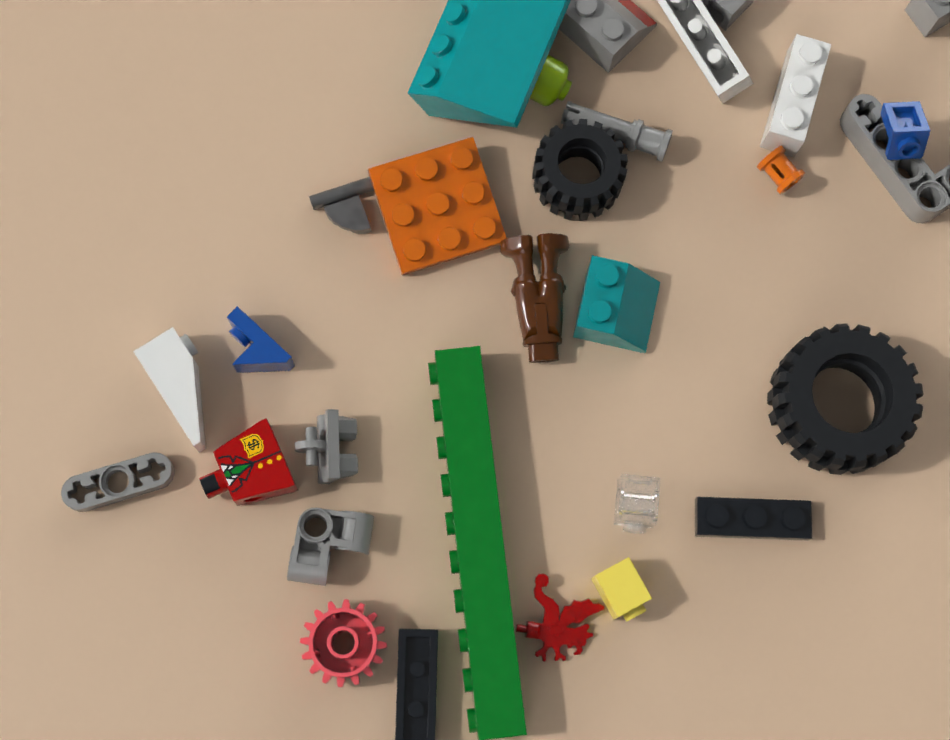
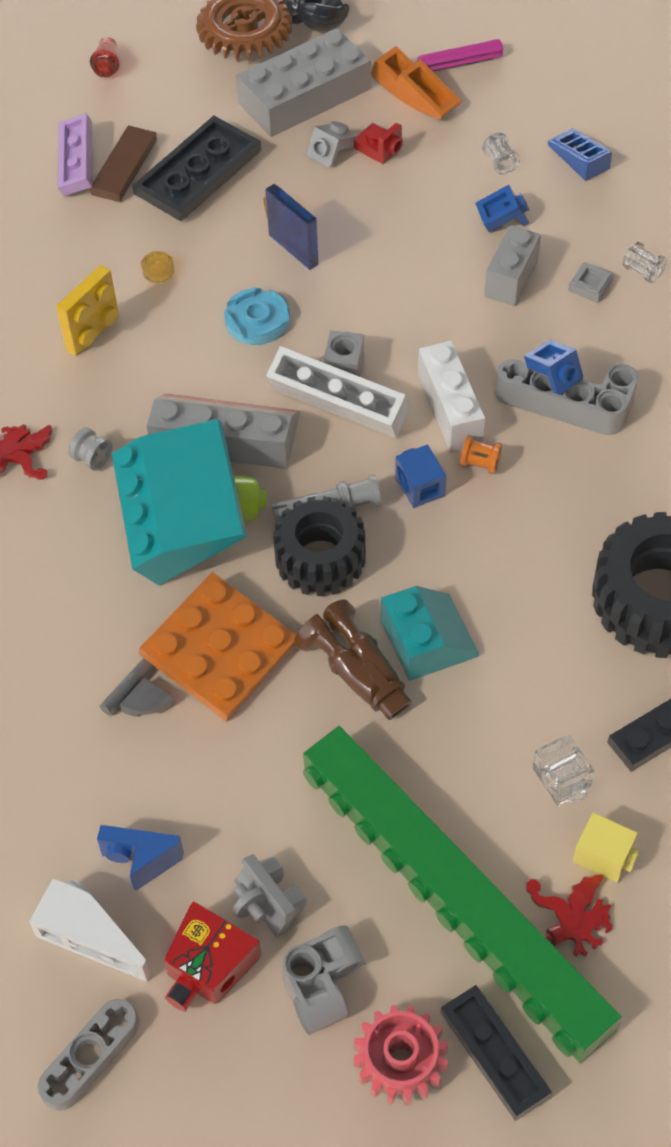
camera: 25 degrees left, 20 degrees down
(713, 156) = (420, 475): none -> blue brick

